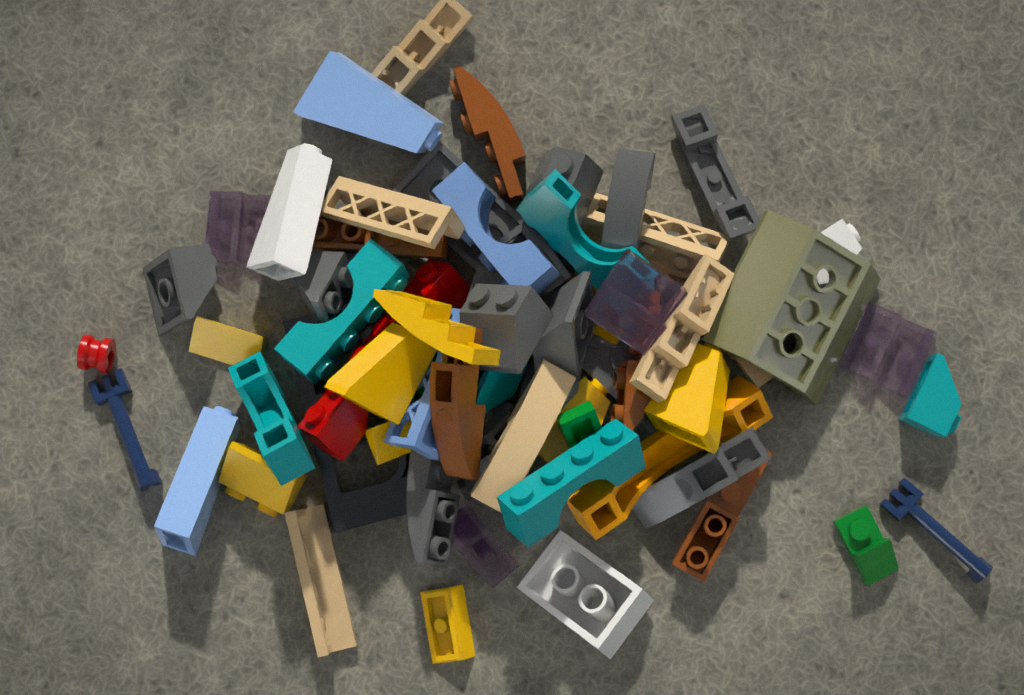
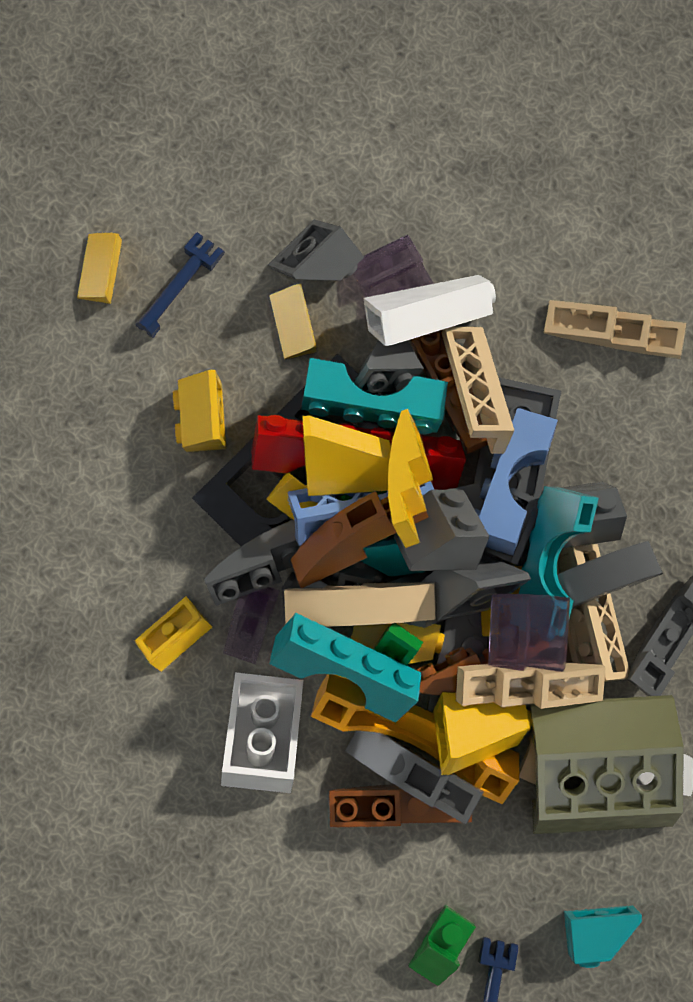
camera: 55 degrees right, 0 degrees up
(65, 493) = (100, 267): none -> yellow slope
(96, 353) = (223, 223): red wheel -> none
(196, 481) = (162, 364): light blue slope -> none
(275, 425) = (240, 404): teal arch -> none
(321, 579) = (148, 509): tan fence -> none
(362, 104) = (553, 312): light blue slope -> none
(488, 121) = (602, 420): dark orange slope -> none
(888, 350) = (617, 868): clear purple slope -> none

